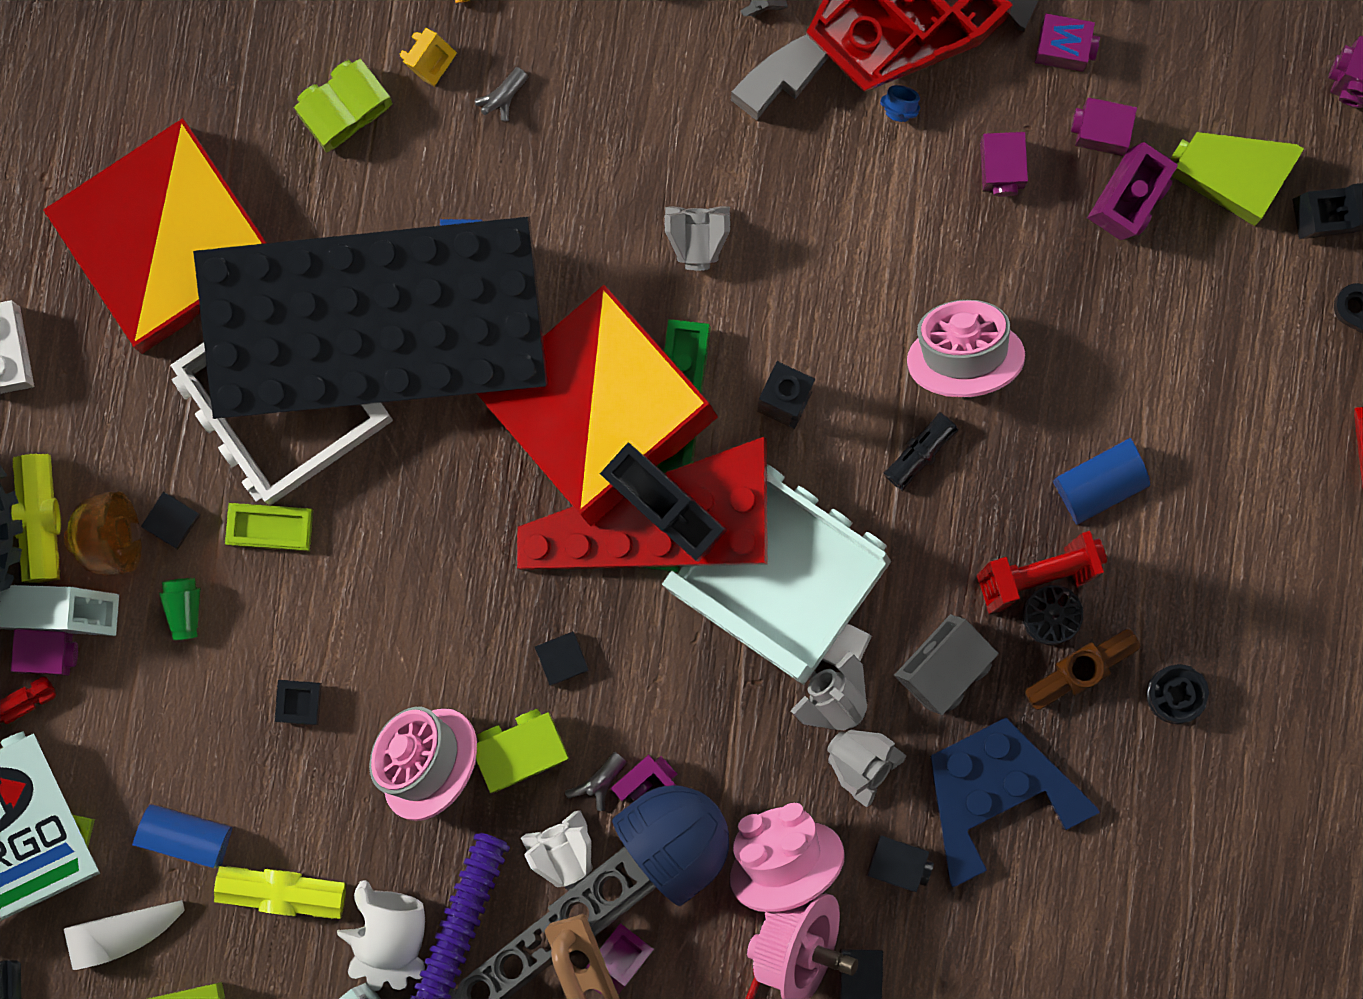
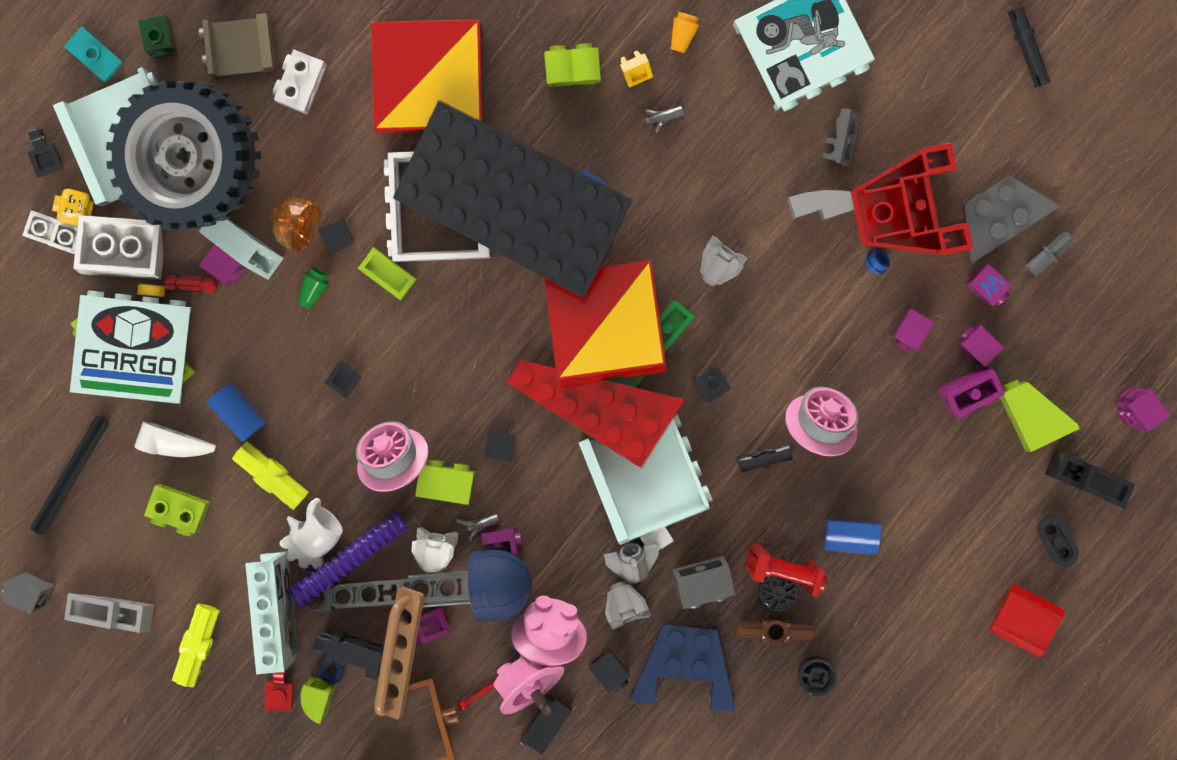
camera: 30 degrees right, 5 degrees up
(39, 518) = (265, 190): neon yellow piece -> none
(663, 502) = (606, 402): black slope -> none

